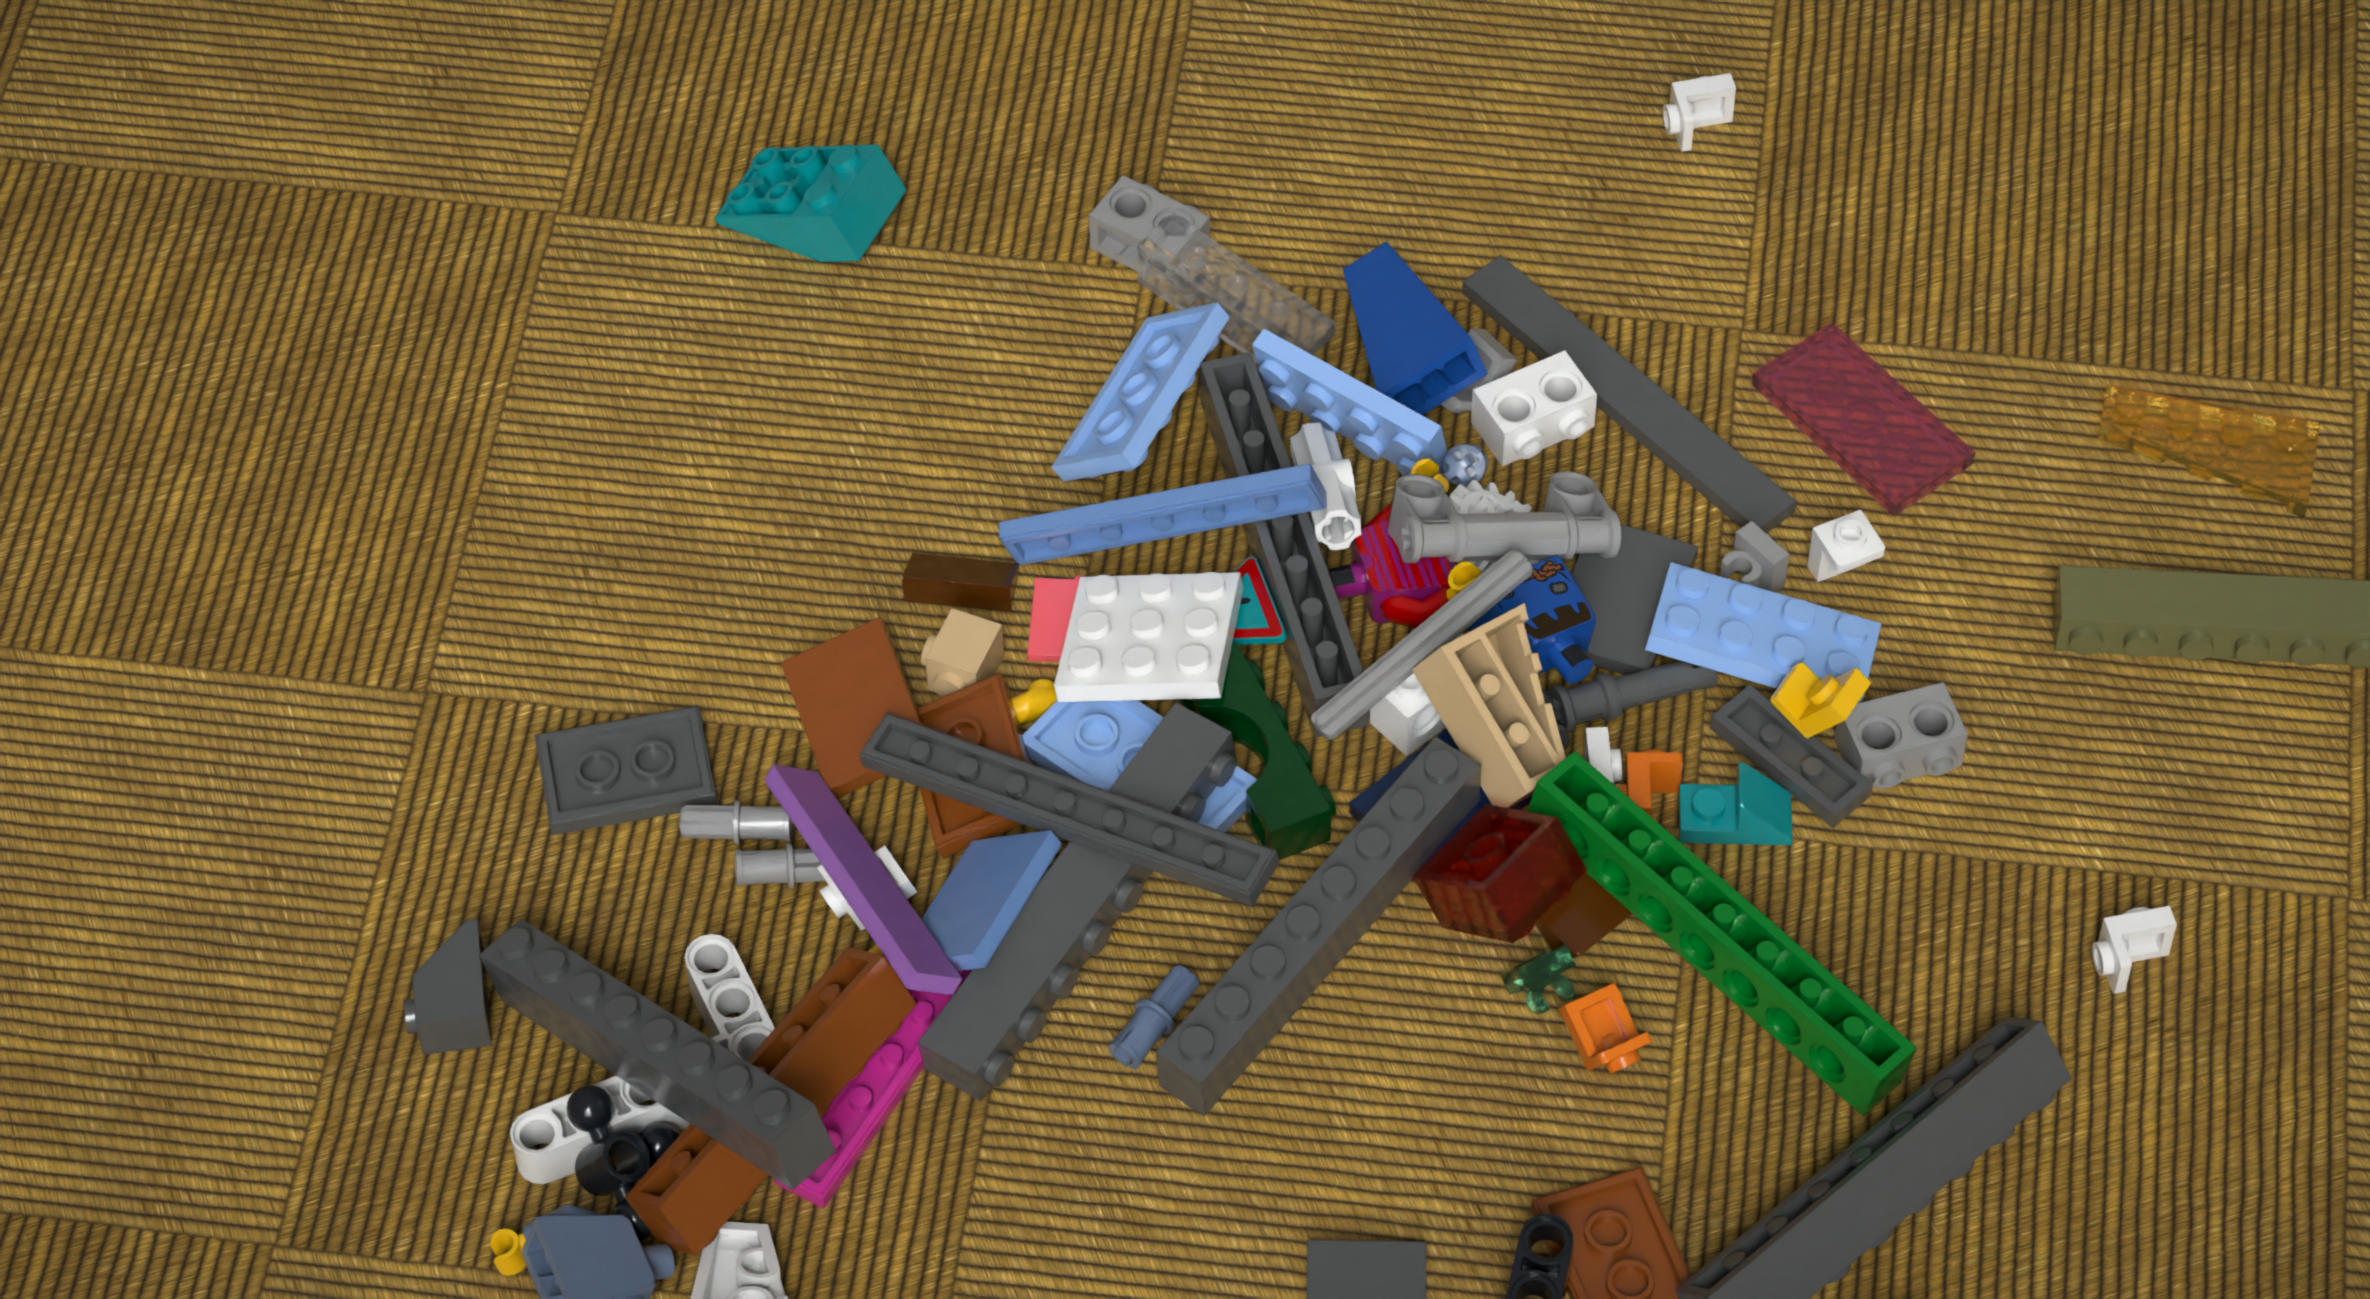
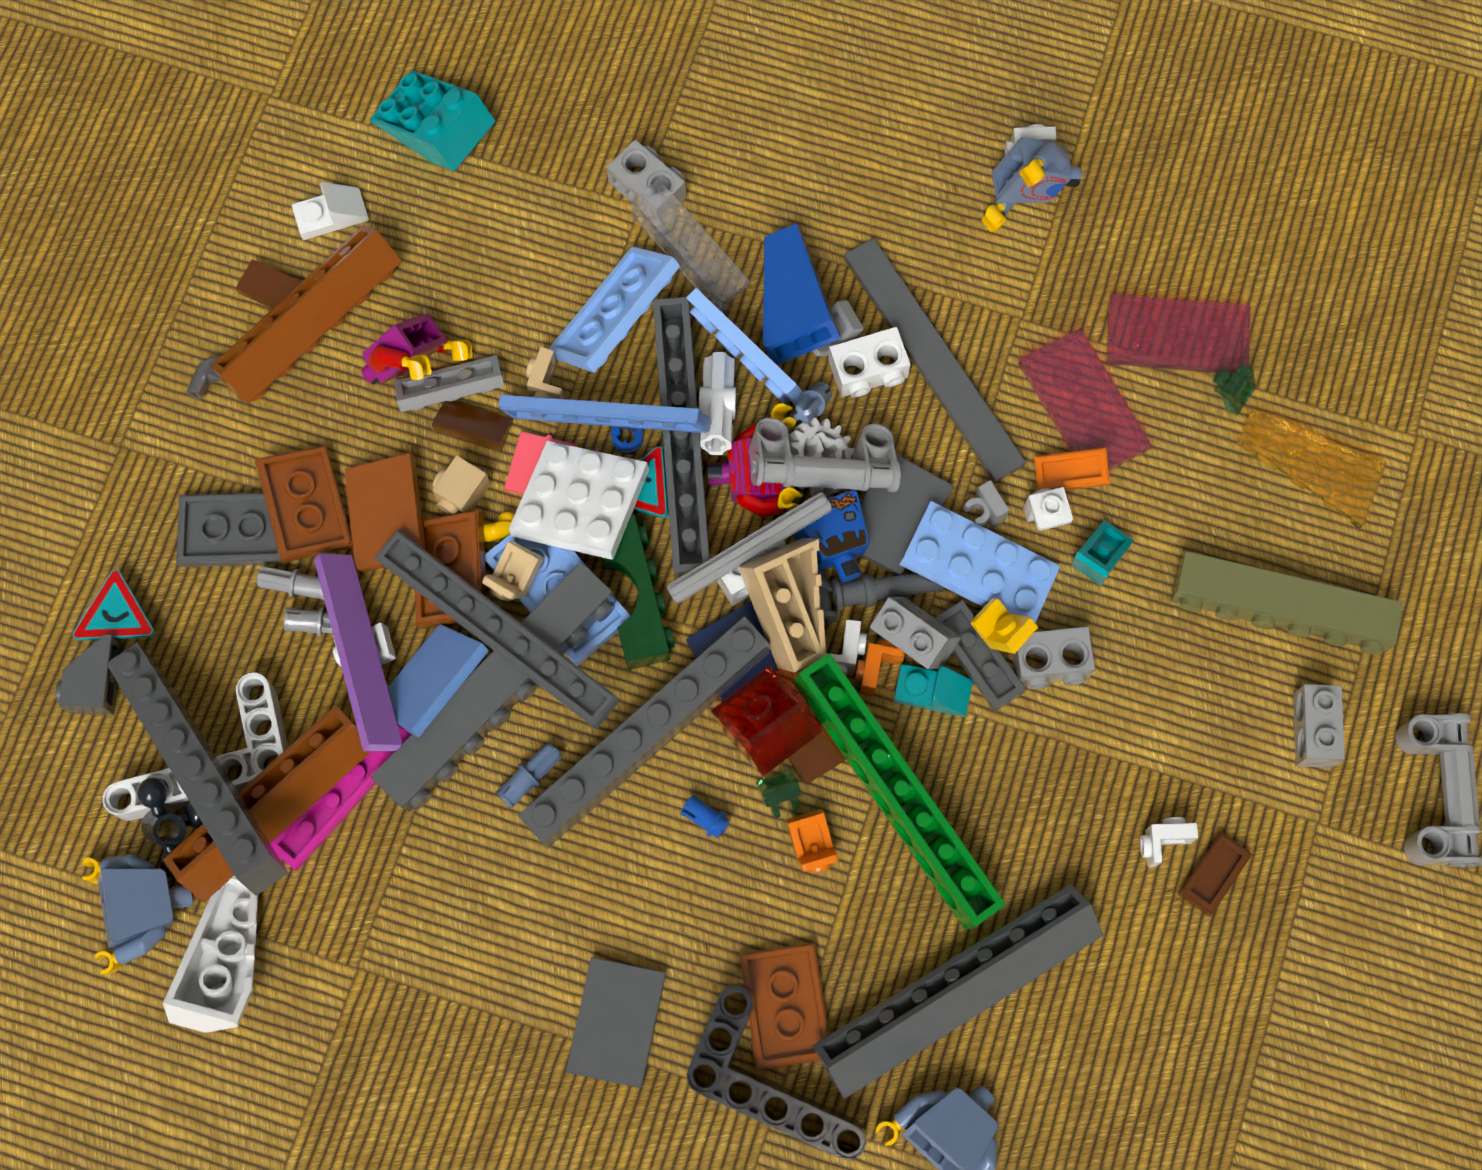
camera: 10 degrees right, 20 degrees up
(470, 891) = (114, 613): none -> piece
(544, 572) = (202, 378): none -> flat silver arm
(622, 452) = (265, 284): none -> reddish brown tile
(681, 469) = (306, 314): none -> dark orange brick
(688, 339) = (334, 210): none -> white slope
(728, 714) = (303, 503): none -> dark orange tile
(843, 483) = (407, 350): none -> torso
(915, 529) = (449, 384): none -> light grey plate
(1050, 487) = (540, 374): none -> tan bracket
(1075, 740) = (513, 572): none -> tan bracket
(1196, 544) = (626, 448): none -> blue bush
(1436, 1028) = (705, 817): none -> blue pin
(1696, 728) = (915, 632): none -> light grey brick
(1710, 137) = (1029, 174): none -> sand blue torso
(1880, 492) = (1073, 470): none -> orange tile
(1934, 598) = (1102, 552): none -> teal slope
(1975, 313) = (1177, 334): none -> clear pink tile
(2076, 361) = (1235, 388): none -> clear green tile
(2215, 985) = (1215, 874): none -> reddish brown tile
(2313, 763) = (1318, 726): none -> light grey brick

